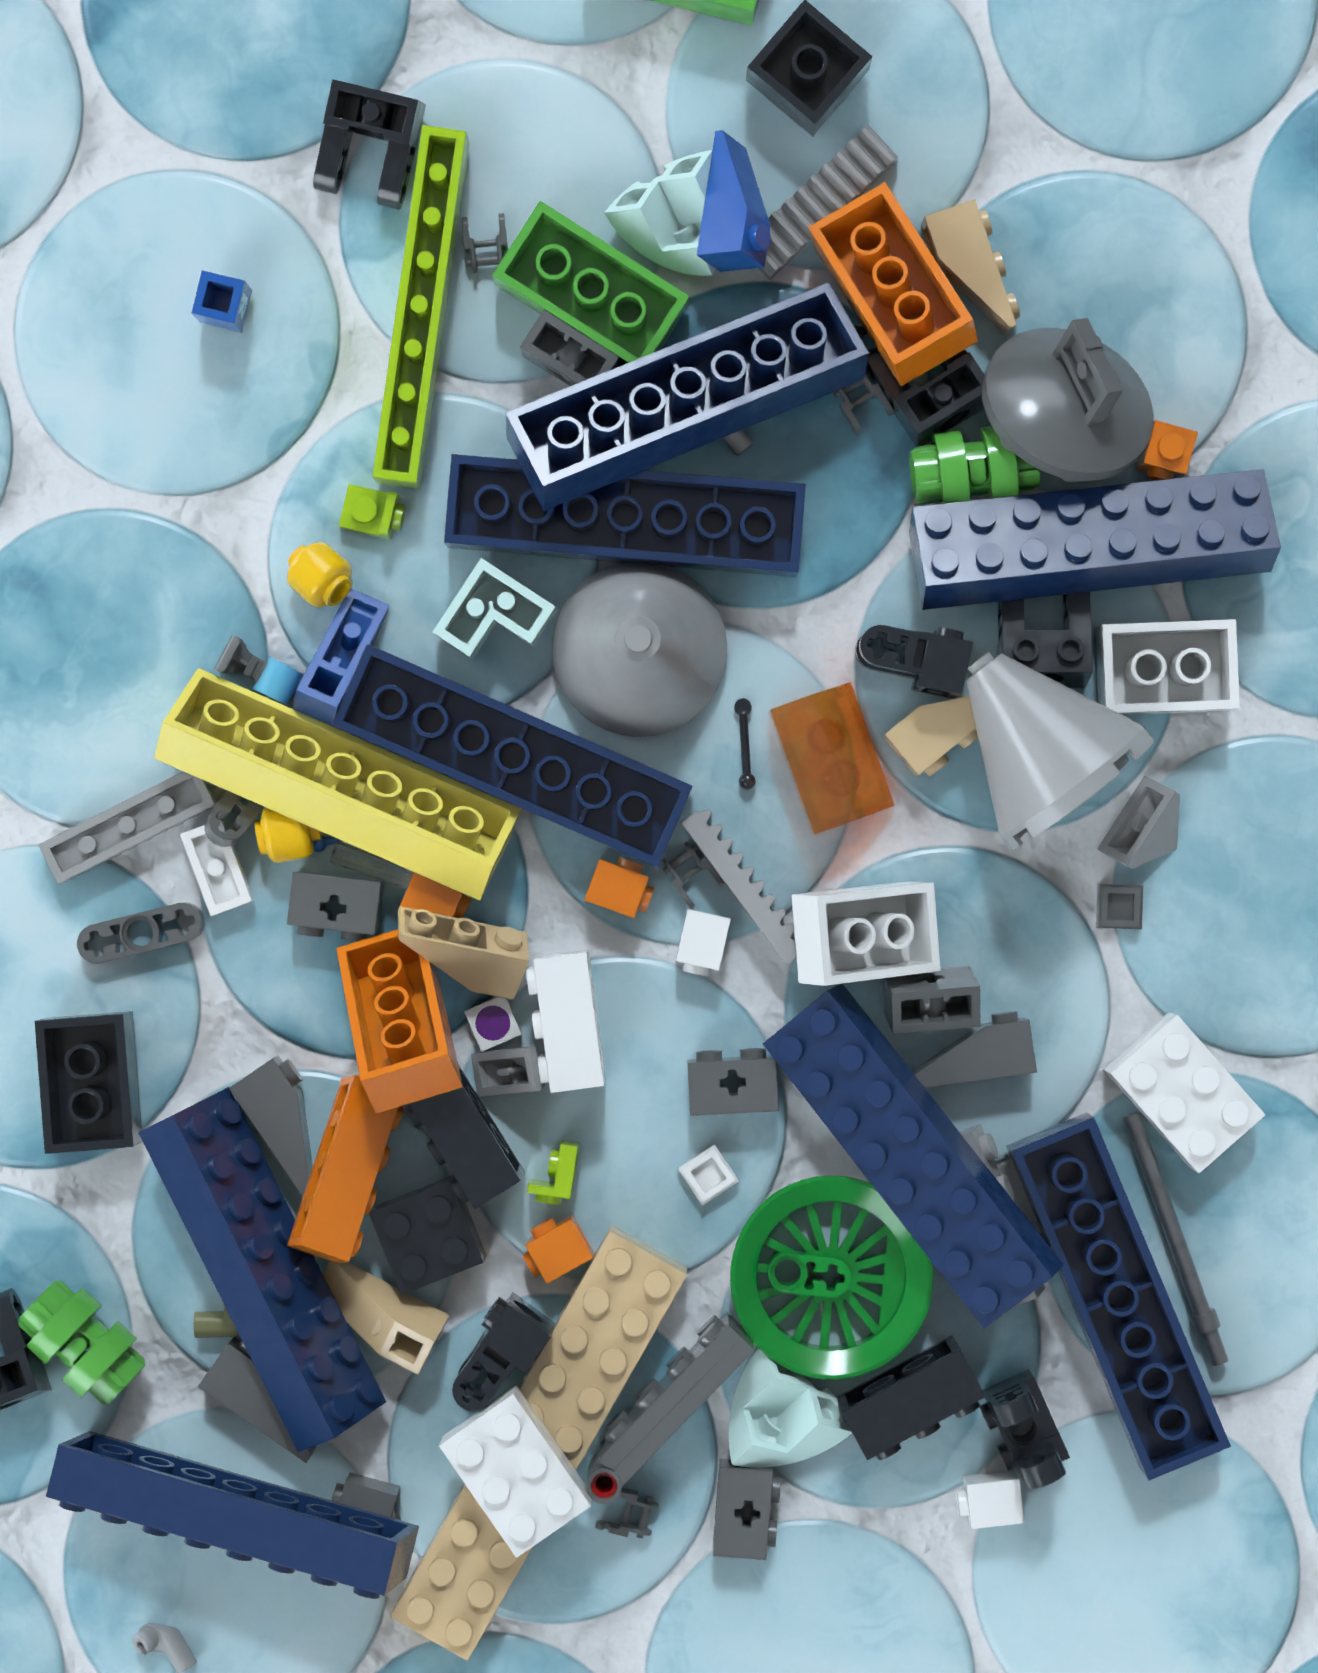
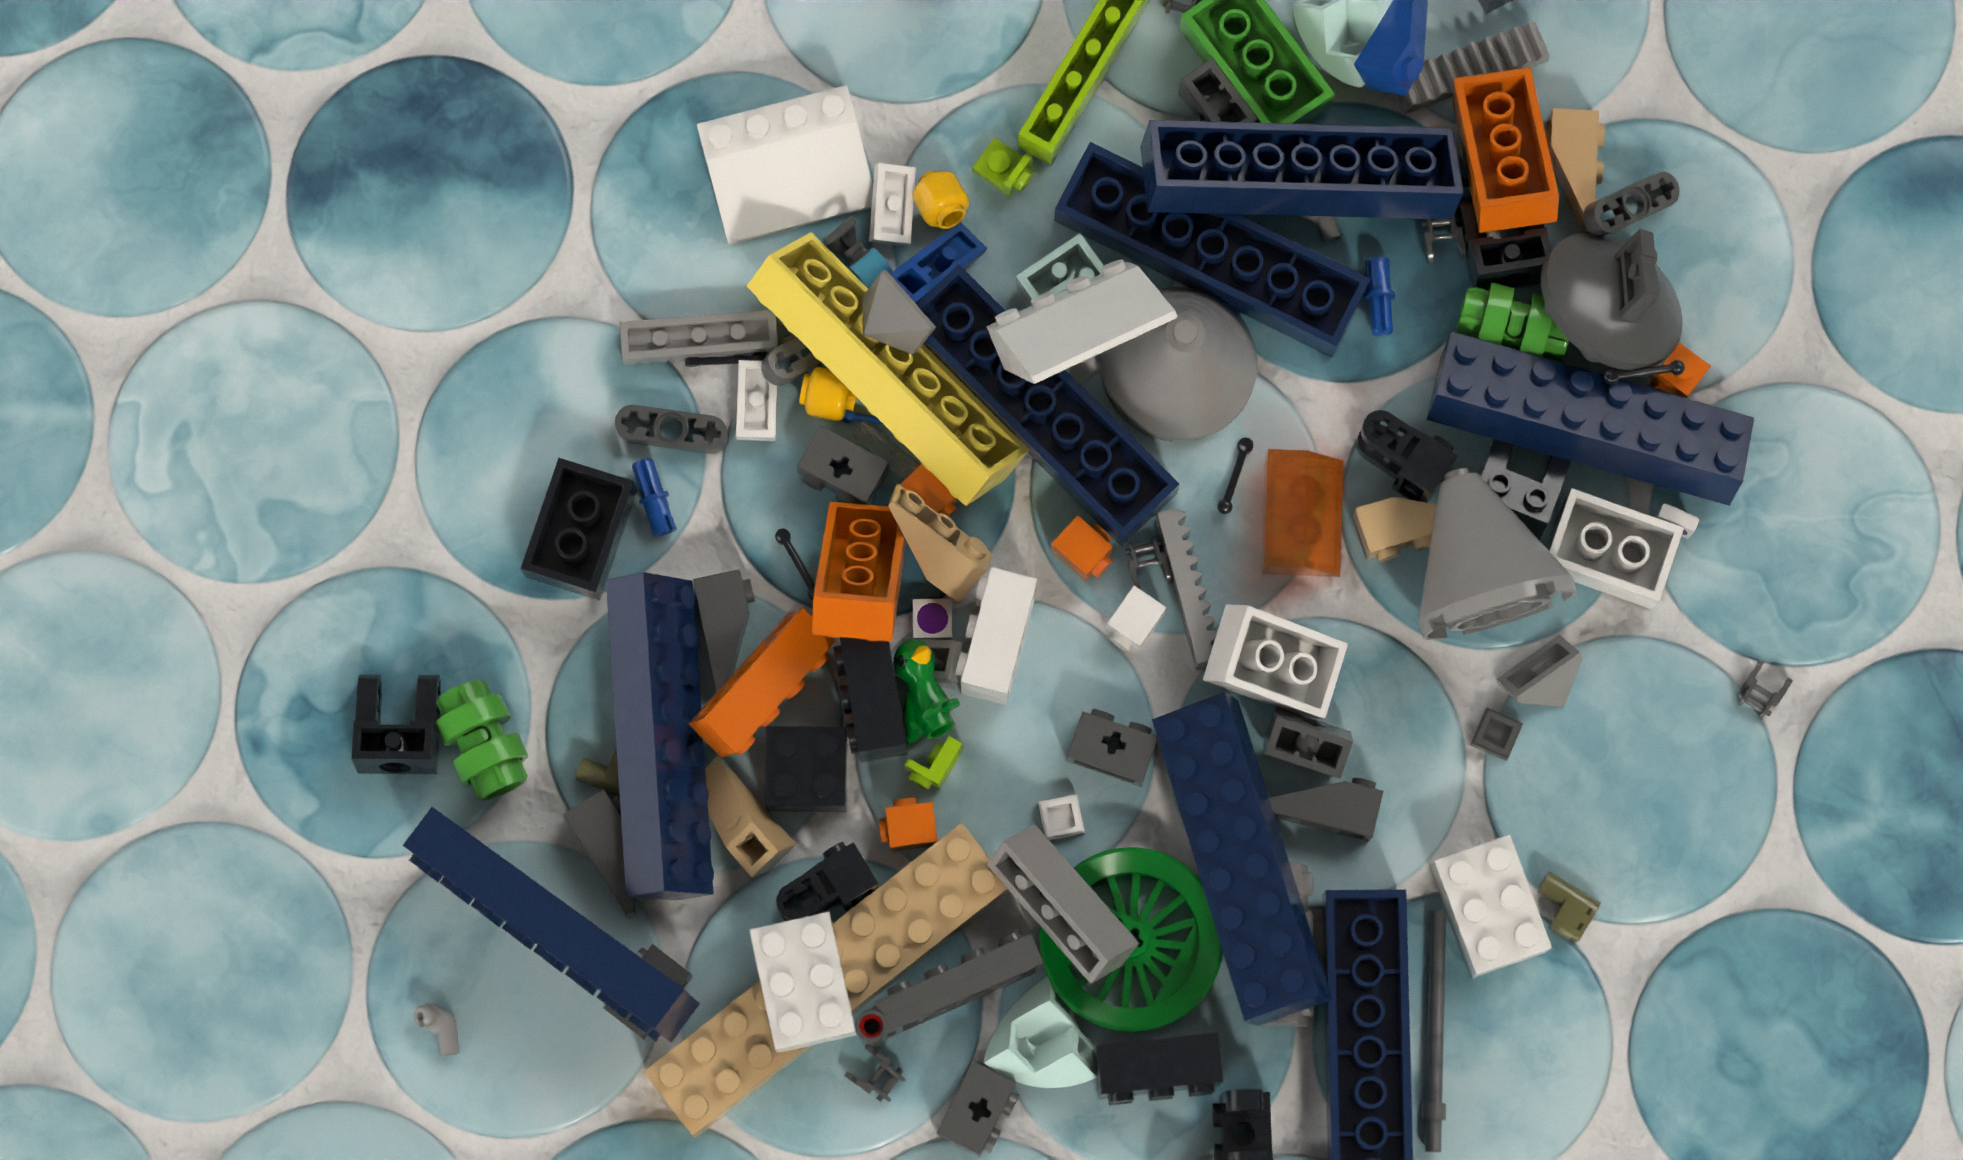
camera: 25 degrees right, 10 degrees down
(143, 603) = (787, 164): none -> white slope
(152, 1013) = (653, 497): none -> blue axle
(196, 821) = (697, 361): none -> black hinge
(271, 600) = (892, 204): none -> white plate
(305, 998) = (783, 538): none -> black hinge
(321, 730) = (893, 316): none -> light grey slope
(521, 666) = (1079, 321): none -> white slope
(523, 1121) = (926, 703): none -> green animal
(748, 1278) = (1062, 903): none -> light grey brick
(820, 491) = (1379, 295): none -> blue axle
(1031, 293) = (1617, 204): none -> dark grey beam
(1101, 488) = (1612, 375): none -> black hinge
(1221, 608) = (1678, 517): none -> white tile
(1269, 1057) = (1575, 907): none -> olive piece

